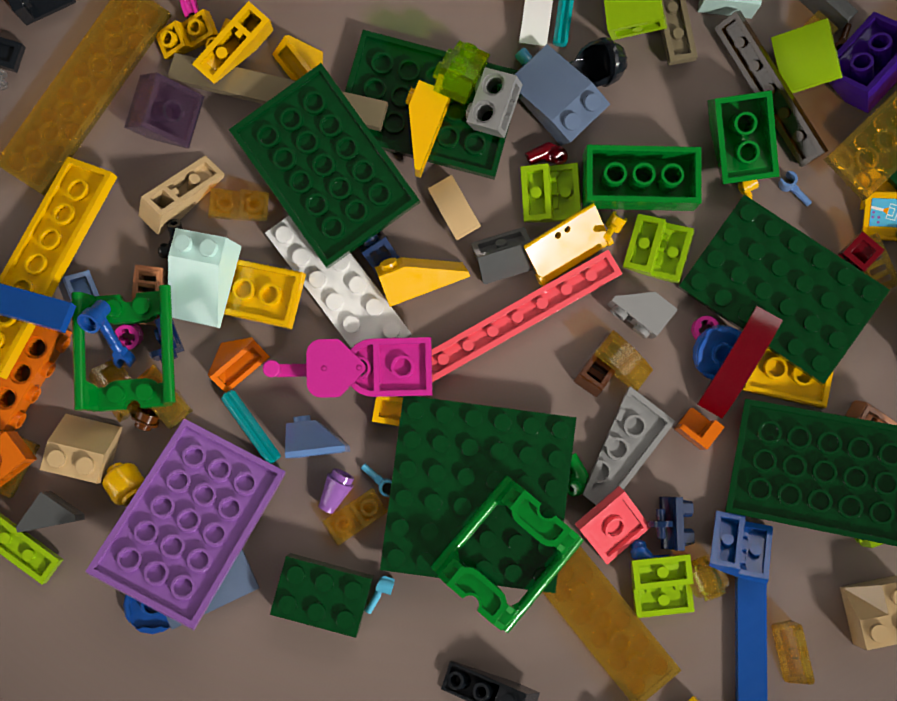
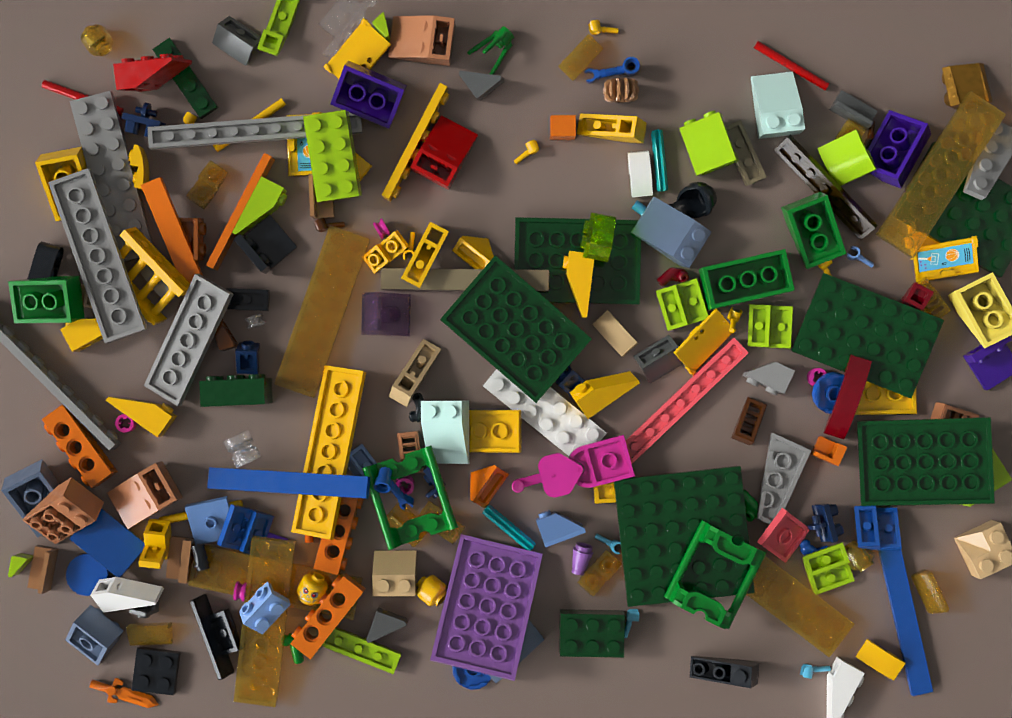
camera: 10 degrees left, 5 degrees up
(145, 419) = (433, 541): reddish brown plate -> none
(238, 205) = (457, 369): clear yellow slope -> none
(500, 103) = (633, 253): light grey brick -> none
(625, 360) = (764, 415): clear yellow slope -> none

